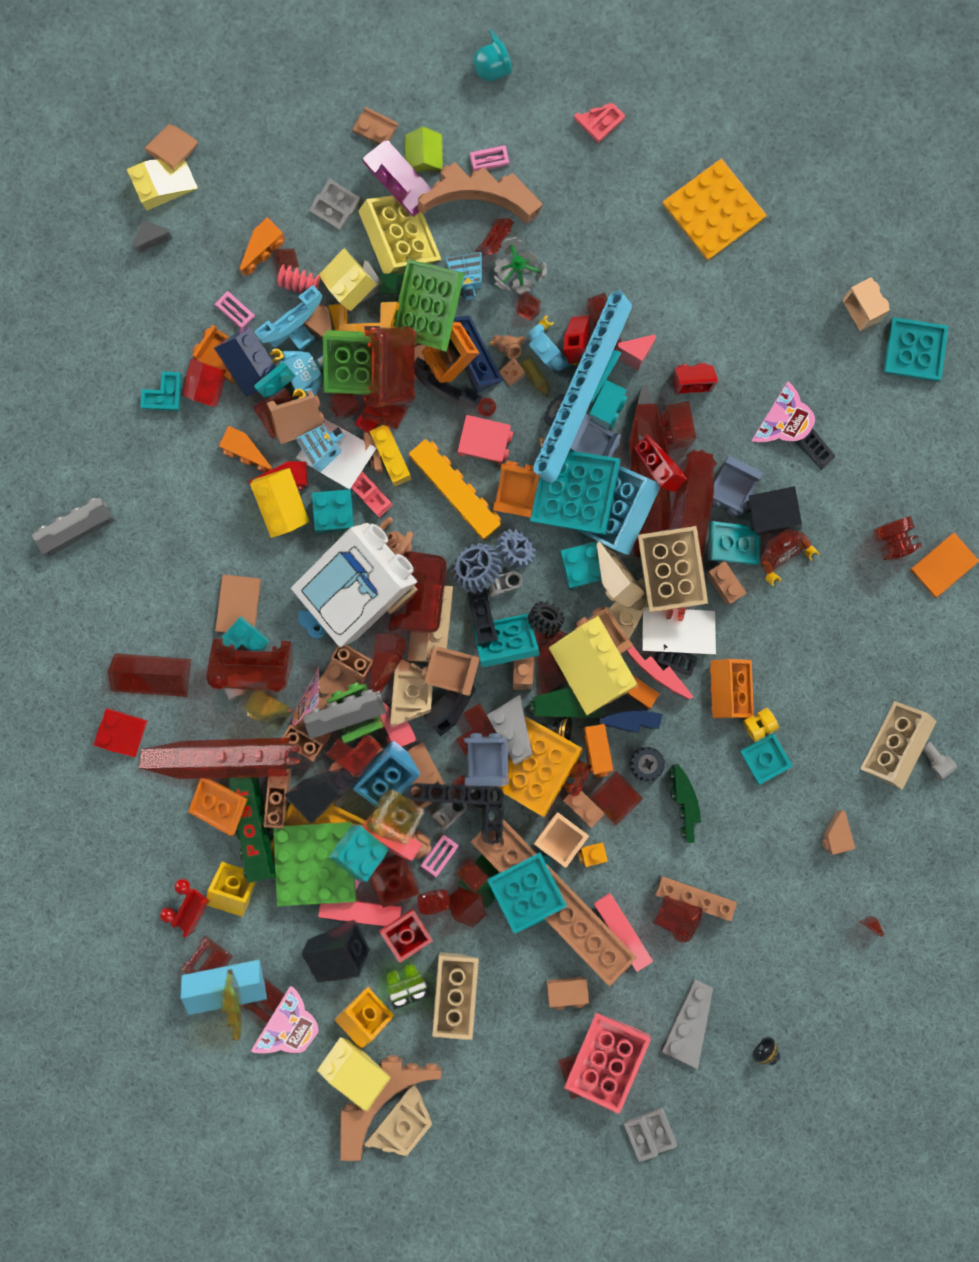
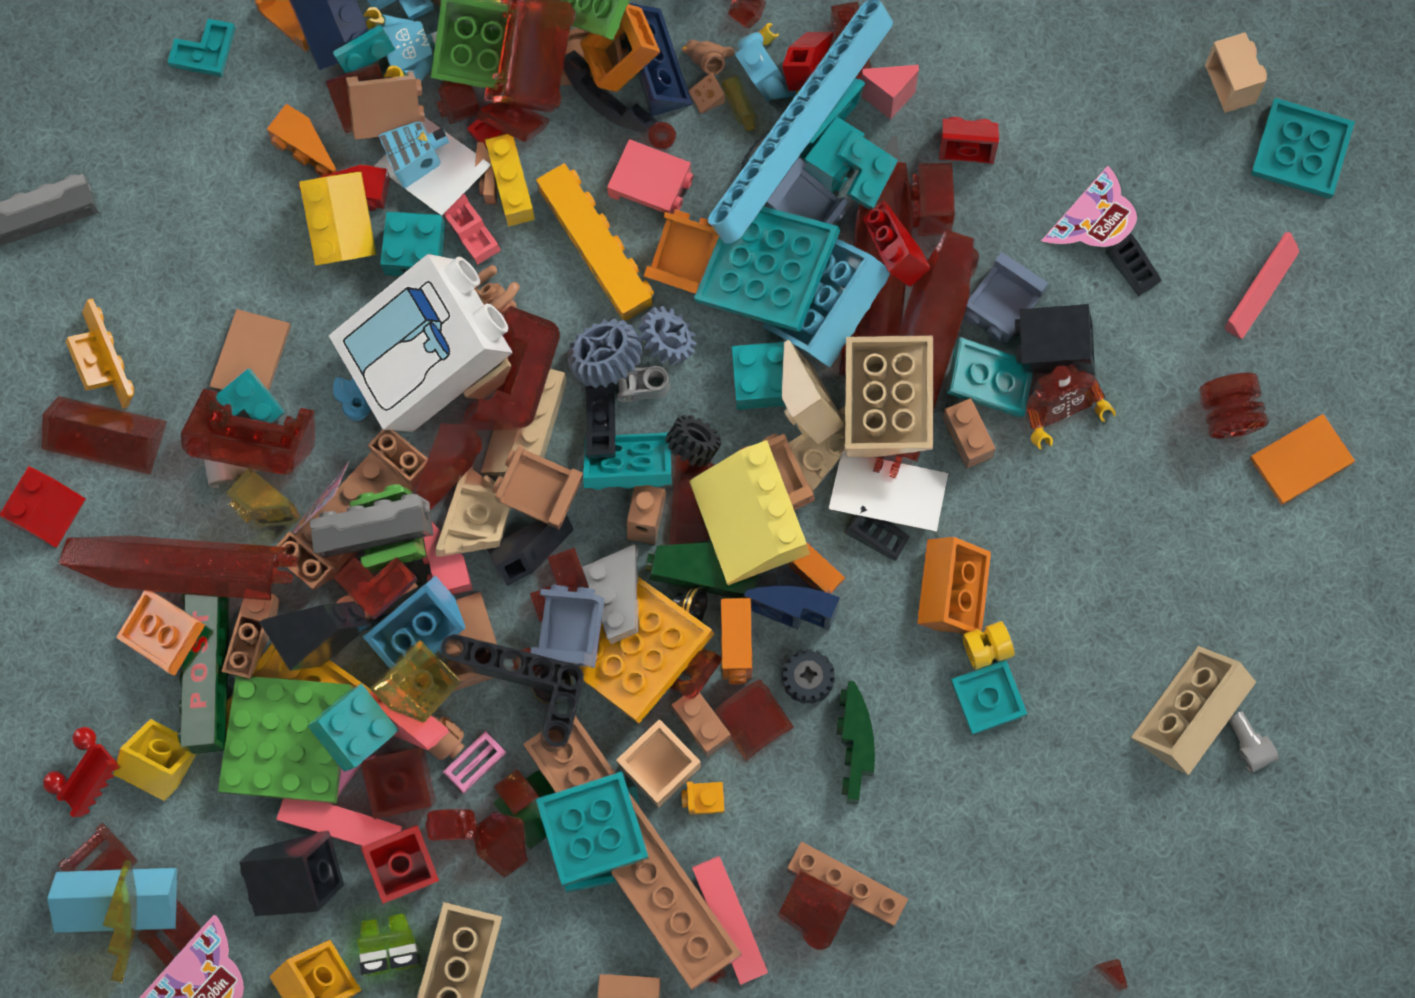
camera: 15 degrees right, 10 degrees down
(135, 624) = (97, 358): none -> light orange bracket
(203, 383) = (265, 42): red slope -> none
(449, 814) = (499, 701): light grey piece -> none
(635, 411) = (873, 168): none -> teal plate
(664, 677) = (855, 554): coral slope -> none
(838, 834) = (1081, 829): nougat slope -> none
(902, 450) = (1263, 286): none -> coral slope

